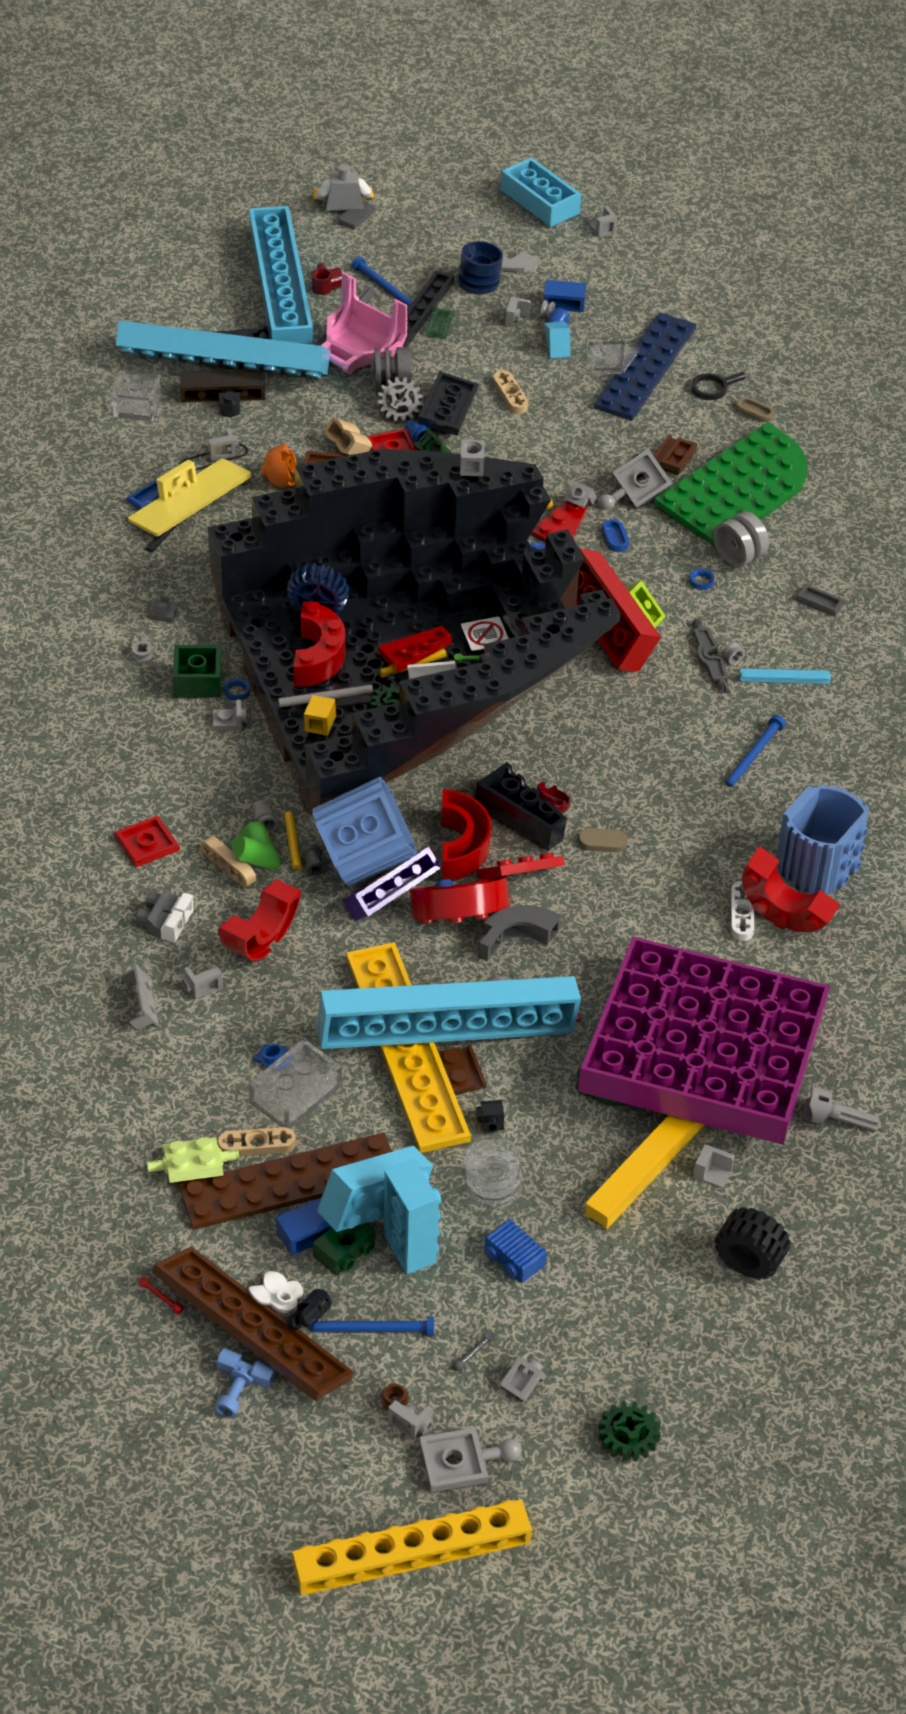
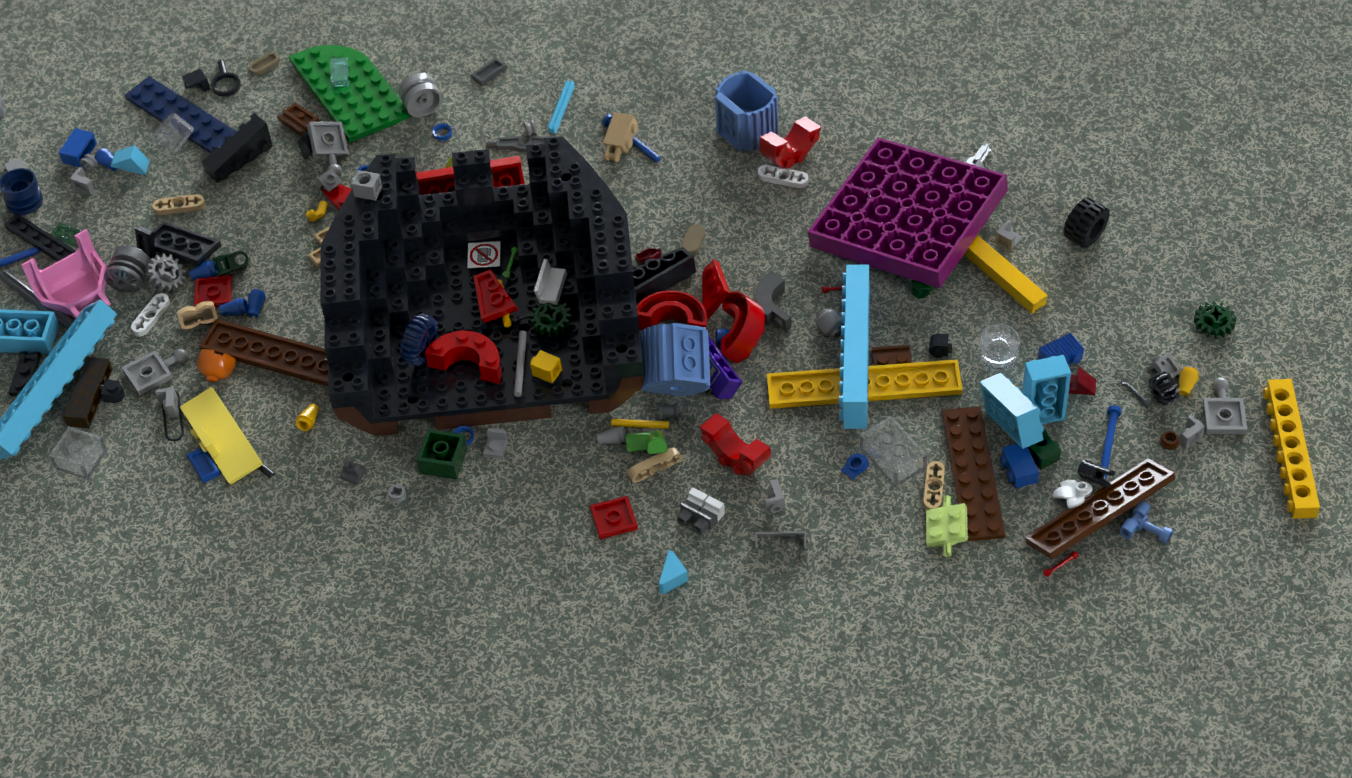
camera: 70 degrees left, 5 degrees up
(70, 903) = (673, 574): none -> medium azure slope
(275, 426) = (152, 362): none -> light grey plate
(360, 407) = (150, 308): none -> white beam
(433, 372) = (145, 241): none -> black tile
(469, 1278) = (1082, 383): none -> dark red slope
(476, 1373) = (1164, 388): none -> black gear
(505, 1407) = (1188, 379): none -> yellow cone
(605, 415) = (238, 149): none -> black wedge
(702, 357) = (196, 78): none -> black panel
(744, 733) = (619, 136): none -> tan brick
(754, 465) = (339, 72): none -> clear light blue tile

